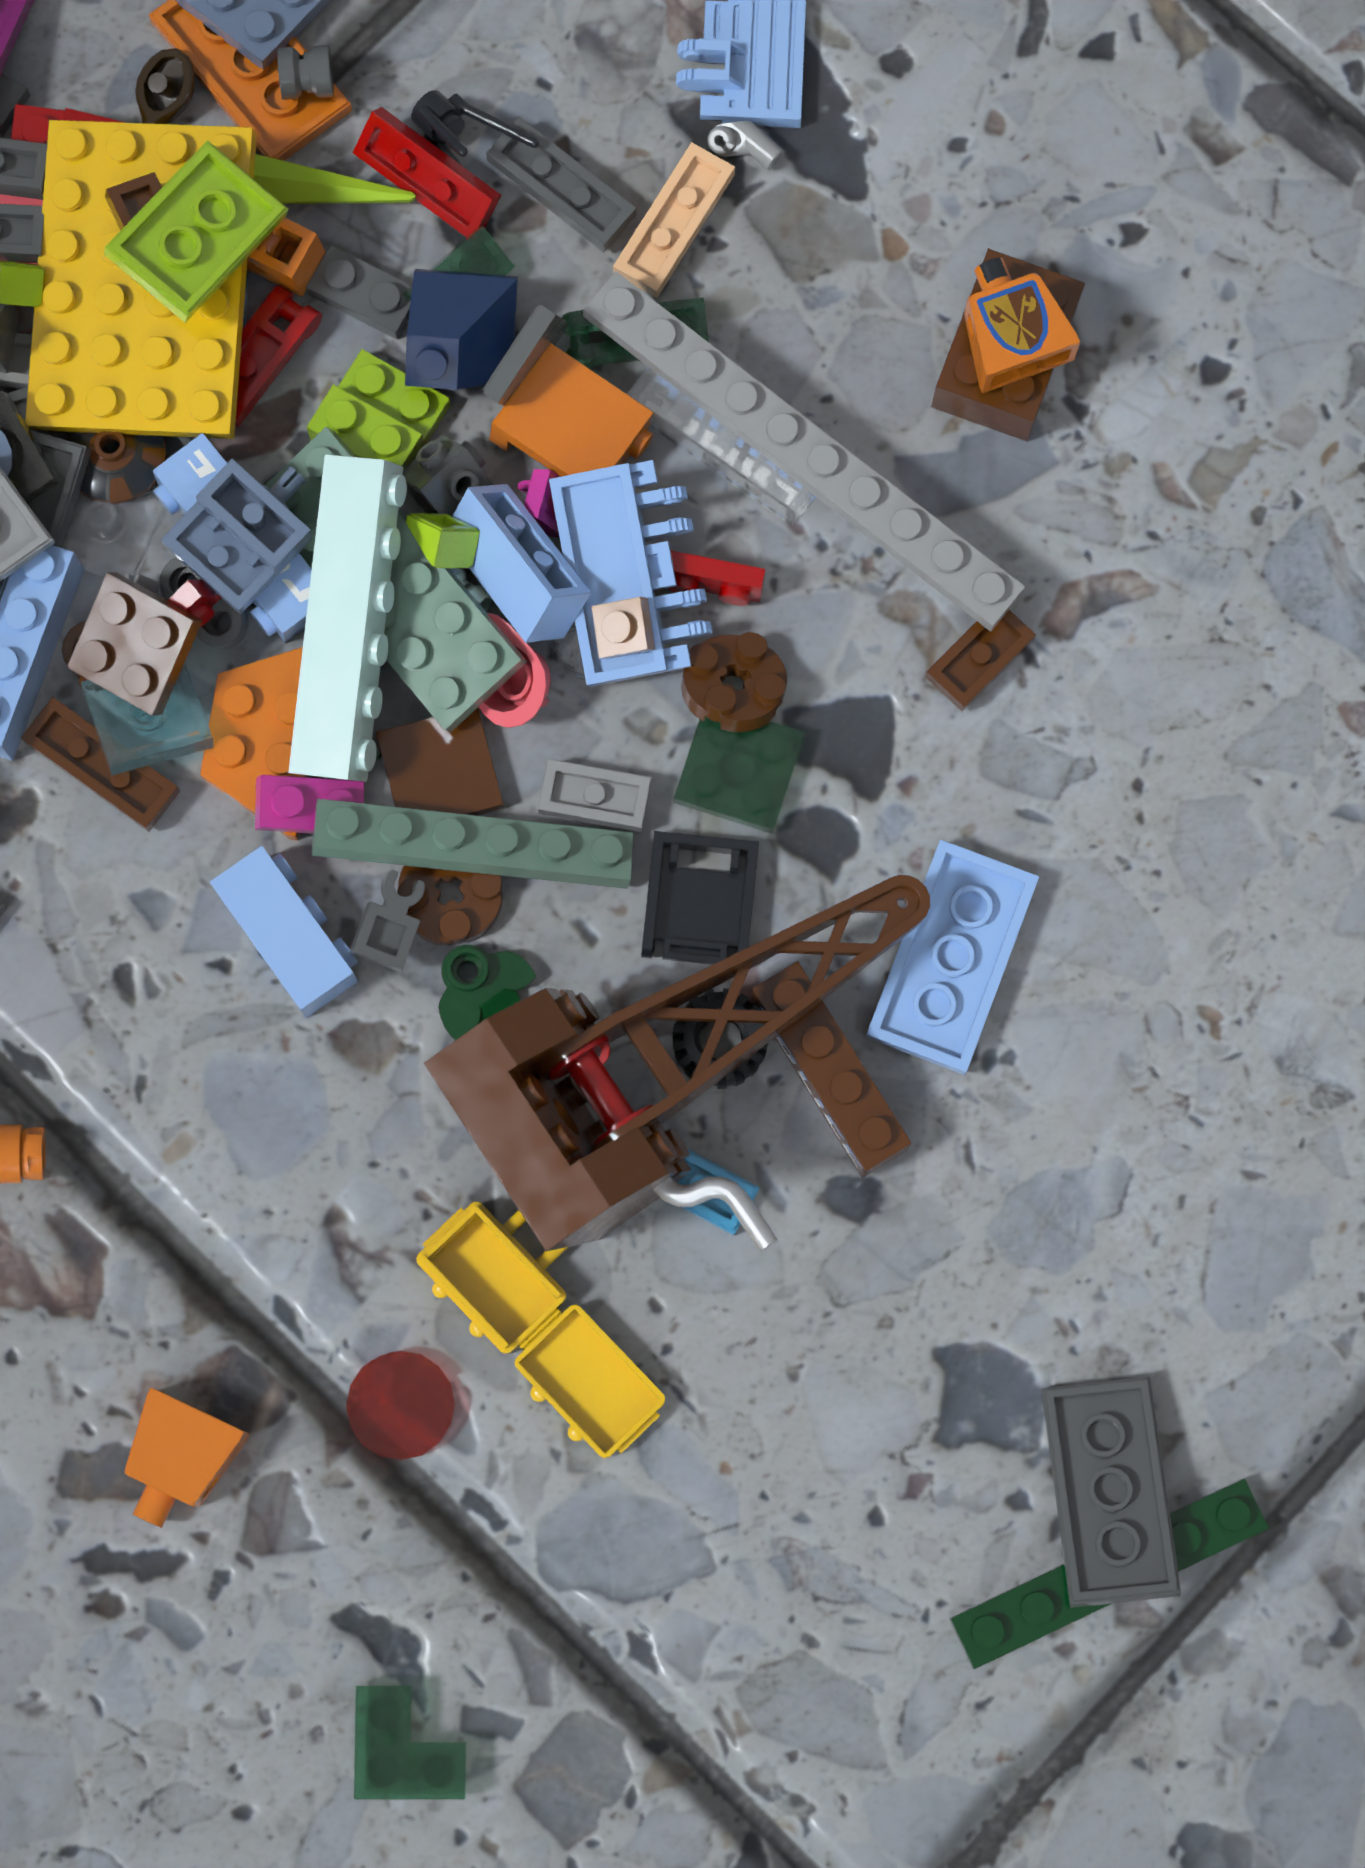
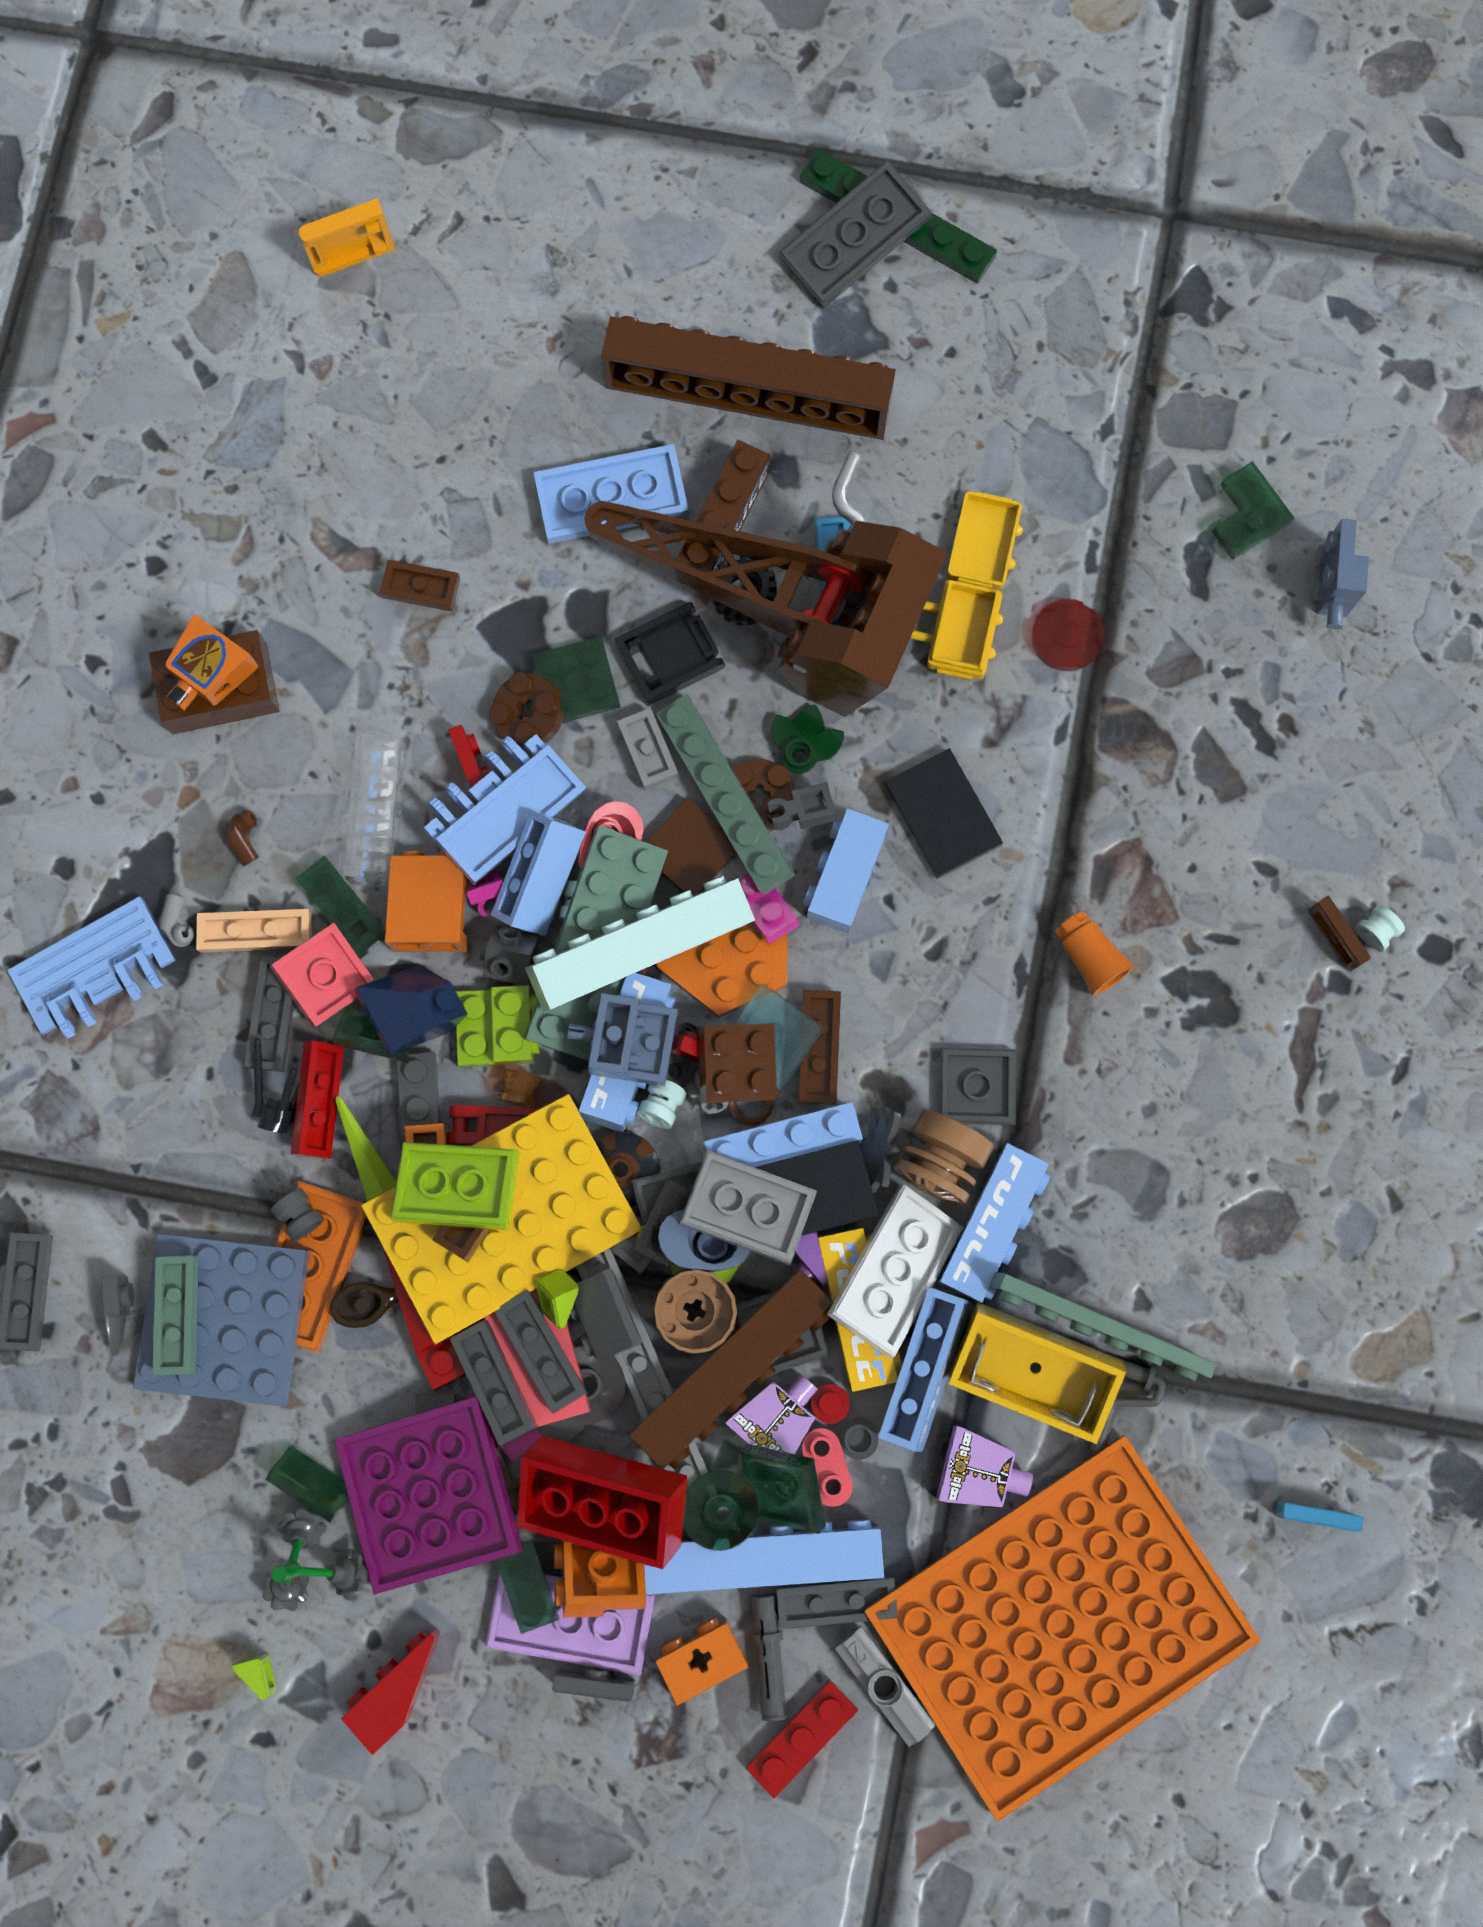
camera: 120 degrees left, 0 degrees up
(146, 532) = (661, 1104): none -> light aqua wheel
(178, 1455) = (1180, 731): orange torso -> none
(224, 1786) = (1341, 575): none -> sand blue plate
(280, 1097) = (943, 813): none -> black tile
(286, 398) = (519, 1088): none -> clear orange wheel
(444, 539) = (551, 921): lime slope -> none
(536, 335) = (404, 948): dark grey tile -> none
(561, 255) = (322, 974): none -> coral plate
(623, 628) = (539, 782): plate -> none
(801, 267) = (238, 836): none -> reddish brown arm
(803, 451) = (359, 753): light grey plate -> none
(983, 1218) = (747, 377): none -> reddish brown brick

